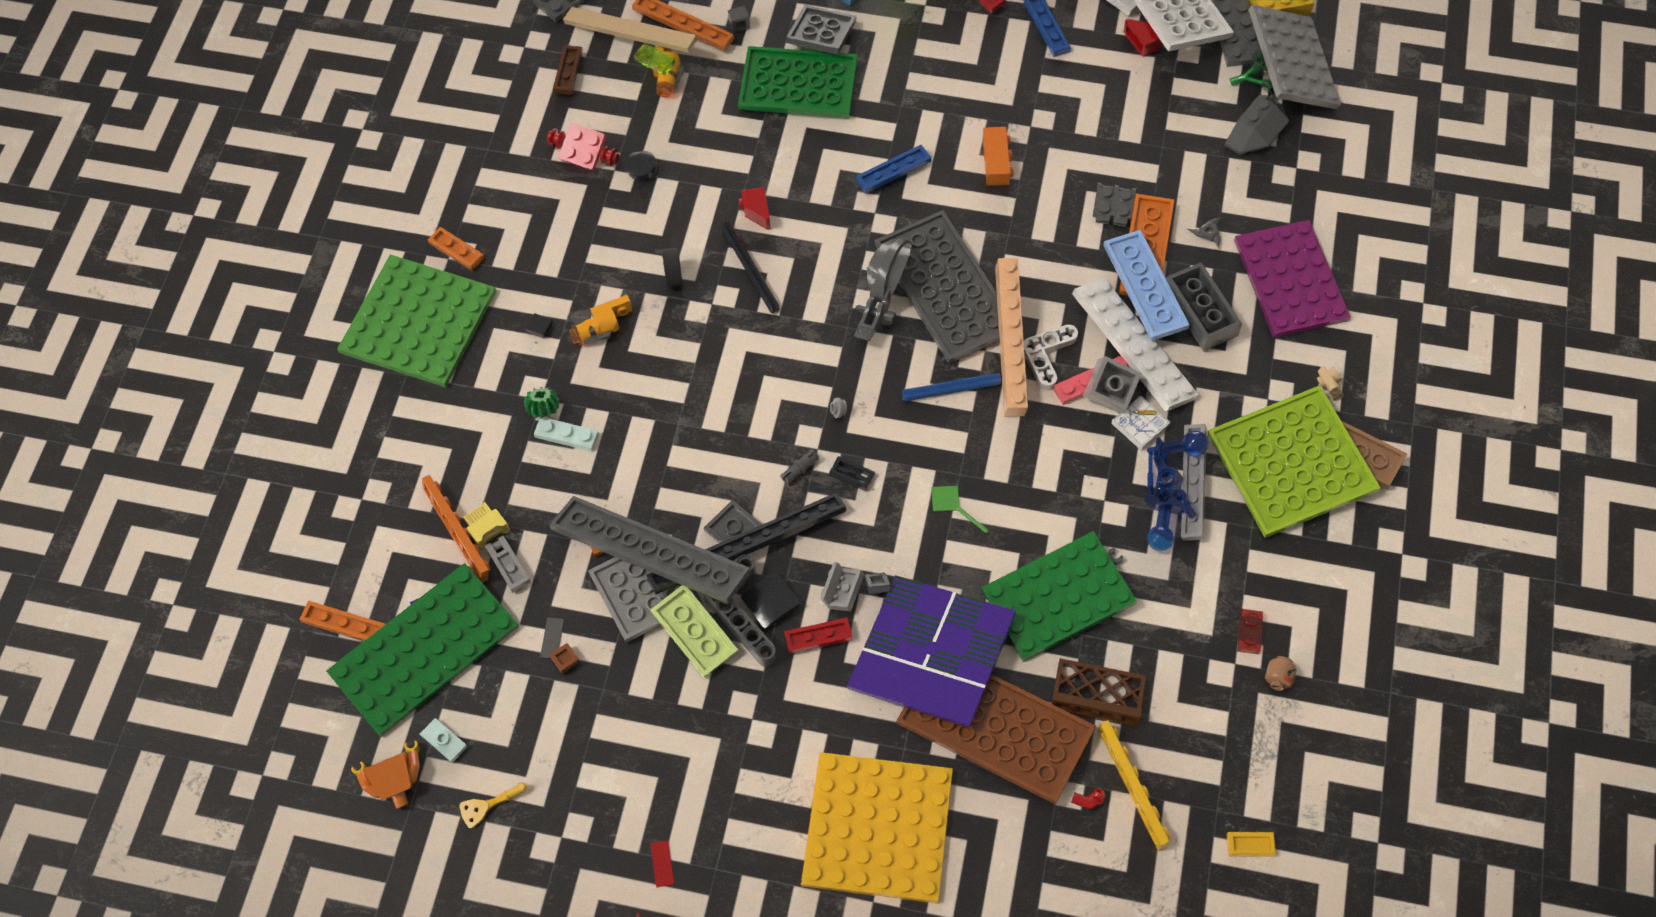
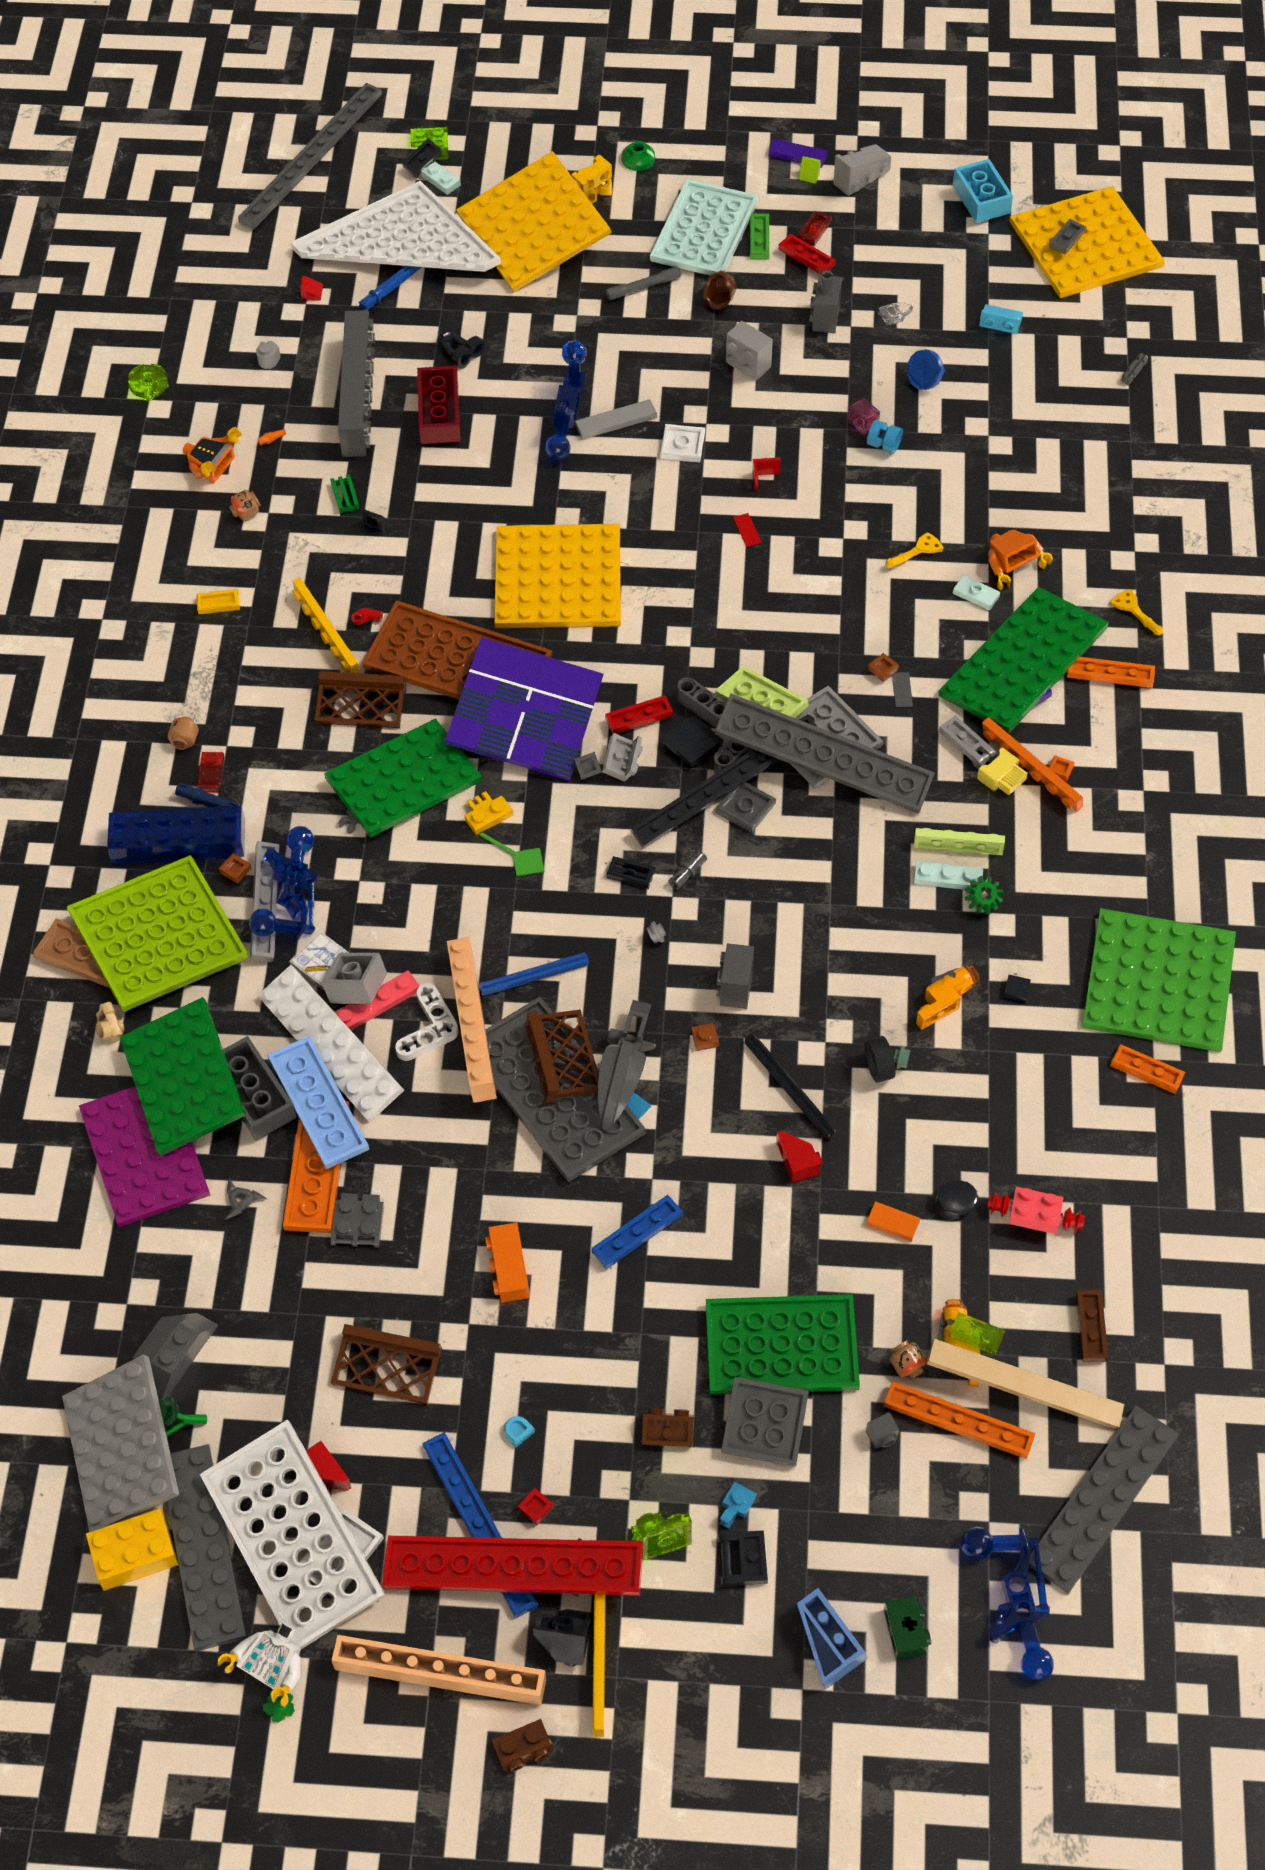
camera: 170 degrees right, 5 degrees down
(292, 698) = (1128, 602): none -> yellow piece
(429, 528) = (1061, 767): none -> orange tile
(551, 460) = (959, 841): none -> yellowish green plate
(652, 274) = (901, 1057): none -> sand green plate
(693, 157) = (893, 1221): none -> orange tile
(708, 60) = (908, 1360): none -> medium nougat head
(776, 349) = (735, 975): none -> dark grey brick
(812, 316) = (705, 1037): none -> dark orange plate
(891, 39) = (667, 1428): none -> reddish brown bracket
(952, 301) = (544, 1061): none -> reddish brown fence
(979, 551) = (487, 812): none -> yellow hinge
(999, 51) = (518, 1430): none -> medium azure tile
(1091, 109) = (392, 1343): none -> reddish brown fence
(1222, 519) = (235, 868): none -> dark orange plate
(1252, 597) = (199, 796): none -> dark blue pin
(1262, 314) = (182, 1076): none -> green plate
(1281, 557) = (176, 834): none -> clear blue brick

